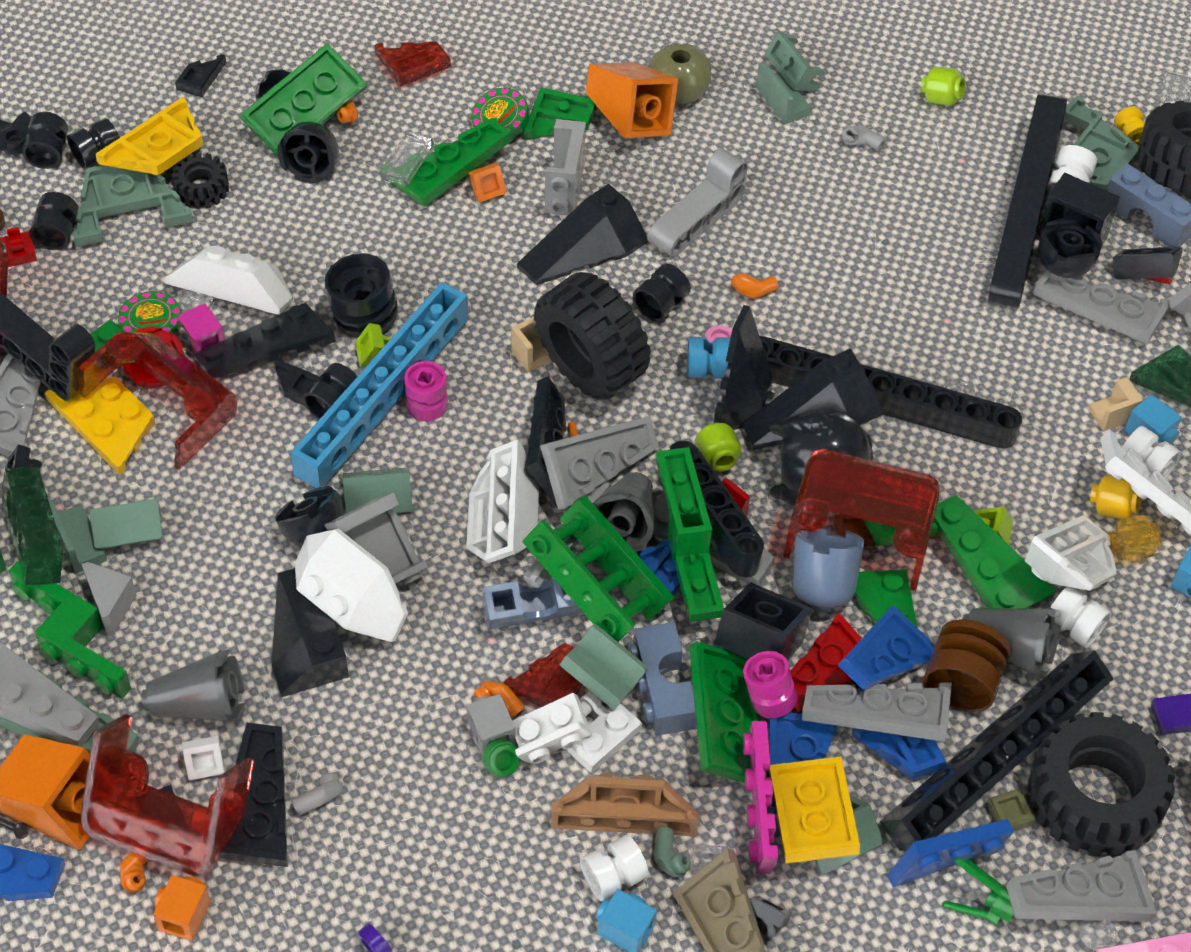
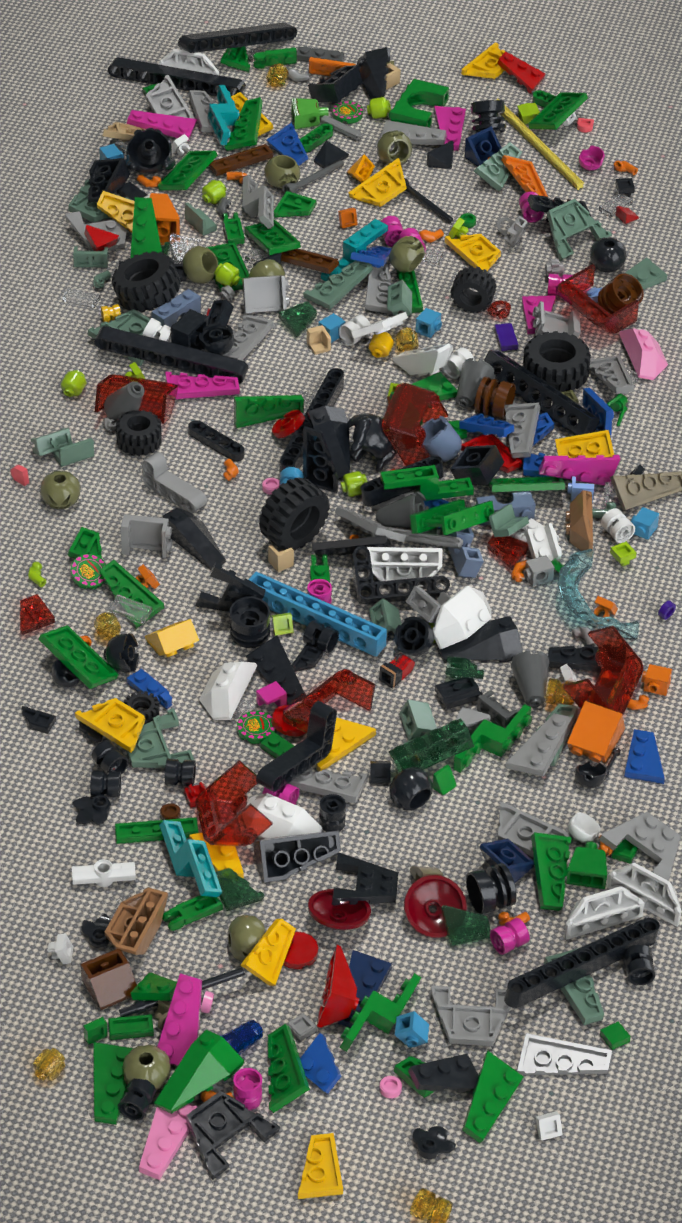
camera: 90 degrees left, 10 degrees down
(139, 640) = (498, 714): none -> dark grey hinge
(162, 737) = (556, 693): none -> clear yellow wheel
(191, 586) = (458, 692): none -> black plate
(235, 584) = (462, 667): none -> clear green wing
(248, 194) = (143, 682): none -> blue hinge
(250, 496) = (397, 669): none -> leg
(348, 211) = (173, 637): none -> yellow slope
(377, 137) = (107, 626): none -> clear yellow head
(390, 832) = (606, 606): none -> orange tile
(398, 775) = (568, 584): none -> clear light blue windscreen
(411, 264) = (234, 590): none -> black wing
(438, 491) = (391, 585): none -> black beam
(491, 402) = (319, 571): none -> green hinge
(502, 61) = (35, 574): none -> lime arm
(533, 870) = (623, 553): none -> lime tile
(633, 97) = (82, 506): orange slope -> none
(662, 292) = (241, 502): black wheel -> none
(720, 798) = (576, 488): none -> light blue bracket
(721, 35) = (20, 474): none -> coral tile
(770, 684) = (515, 461): dark pink wheel -> none
(825, 162) = (138, 432): none -> black tyre
(825, 265) = (232, 450): none -> black beam
(868, 353) = (289, 424): none -> red tile
(885, 138) = (124, 400): none -> dark grey cone
(902, 321) = (260, 409): none -> green wing
(925, 156) = (157, 398): none -> clear red windscreen
(964, 242) = (202, 385): none -> dark pink wing
(979, 161) = (136, 372): none -> lime tile

